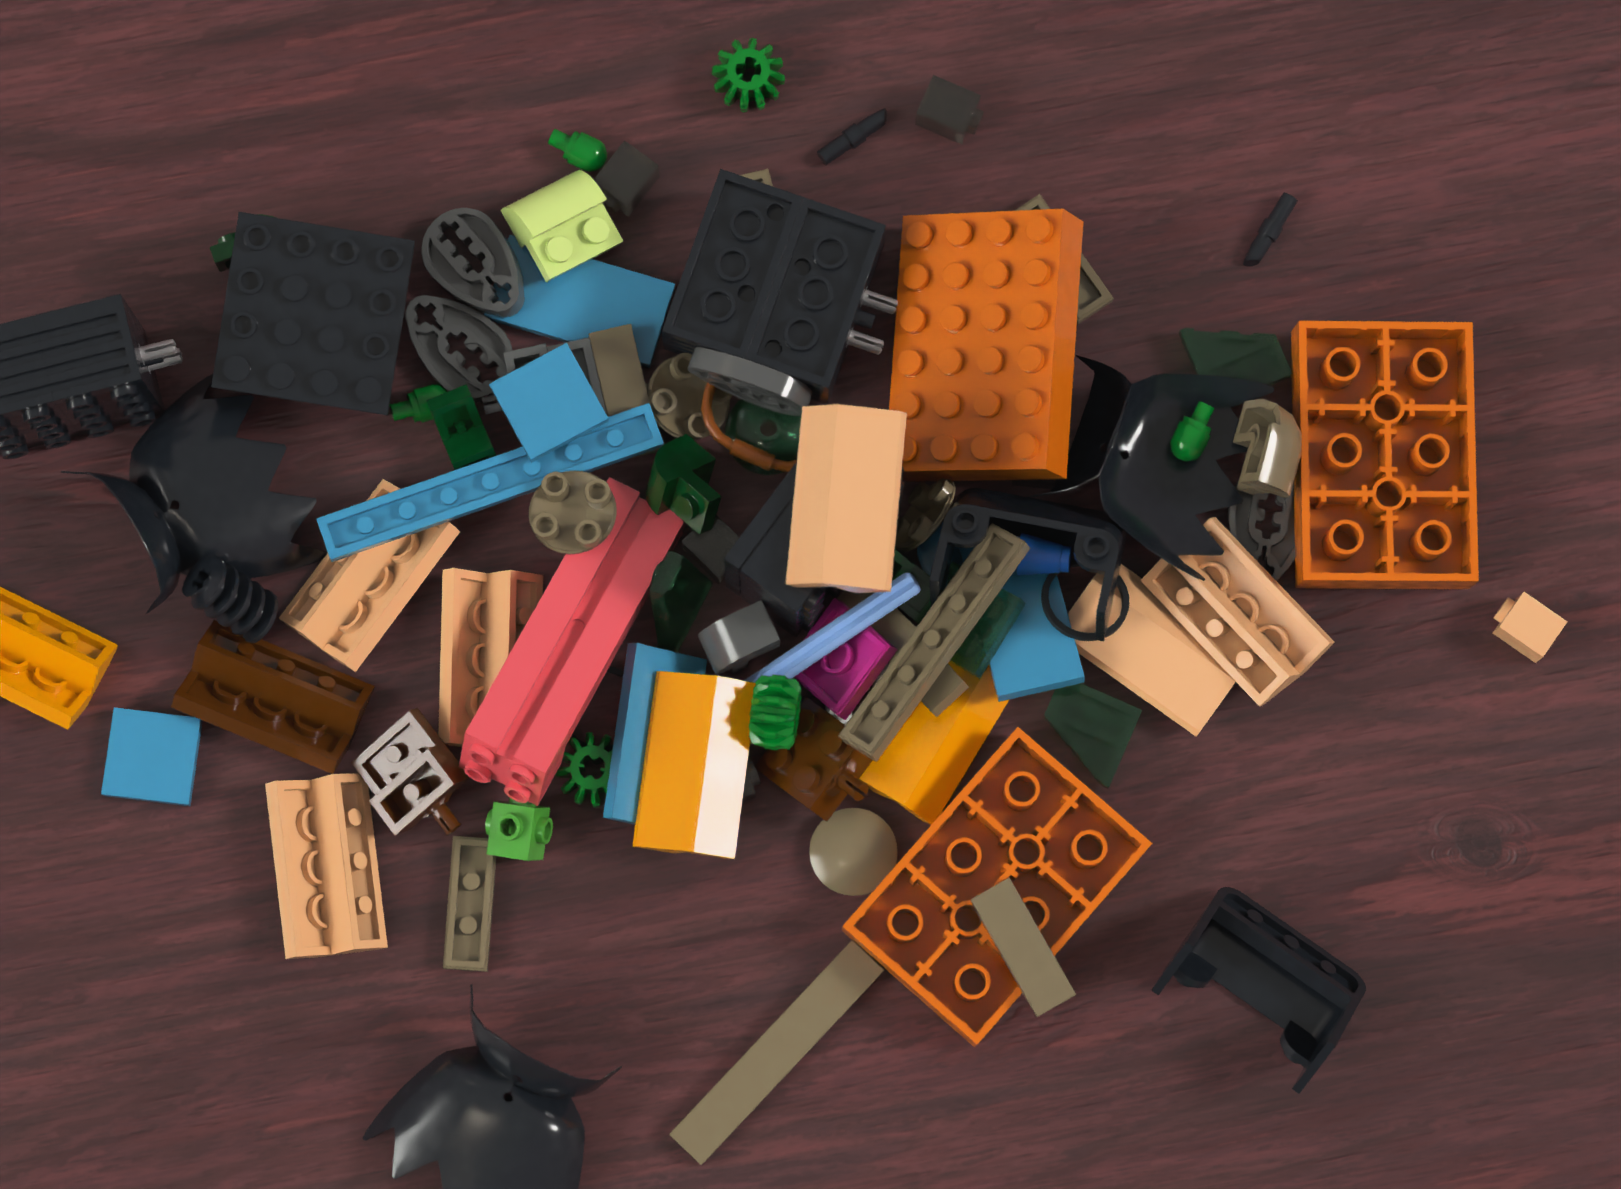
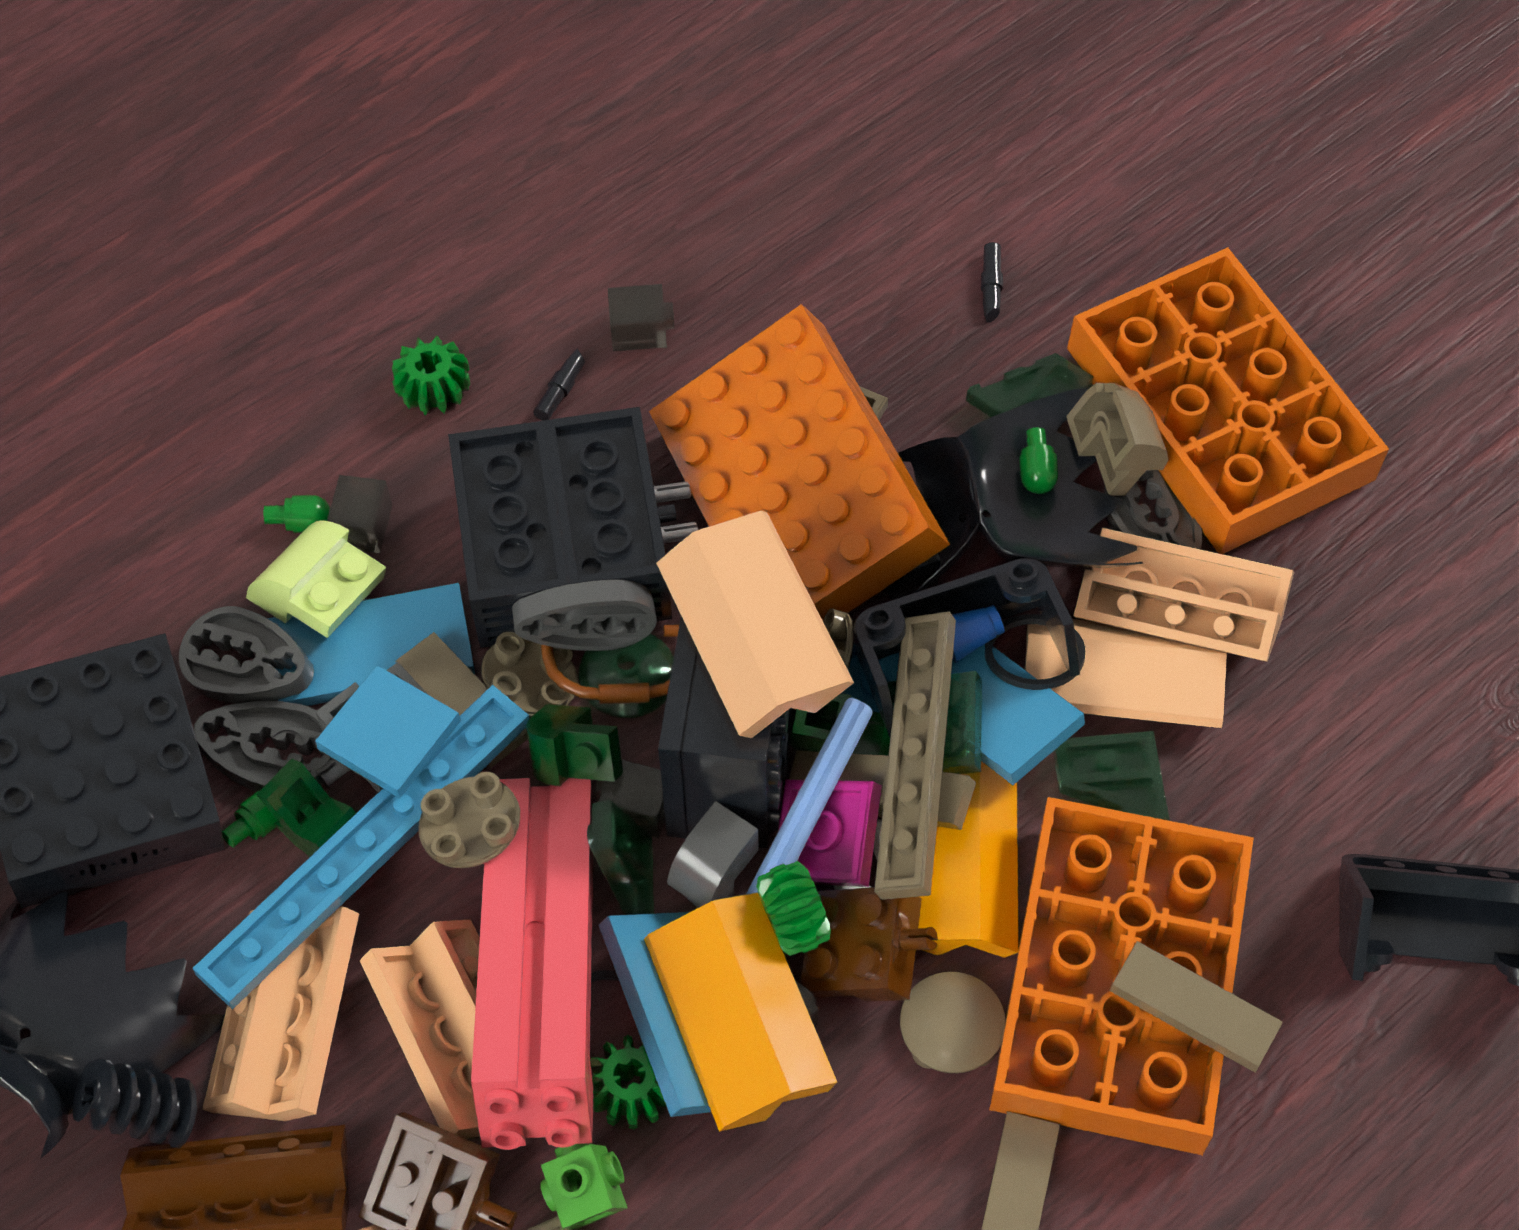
camera: 25 degrees left, 20 degrees down
(1528, 626) = (1454, 478): light nougat brick -> none

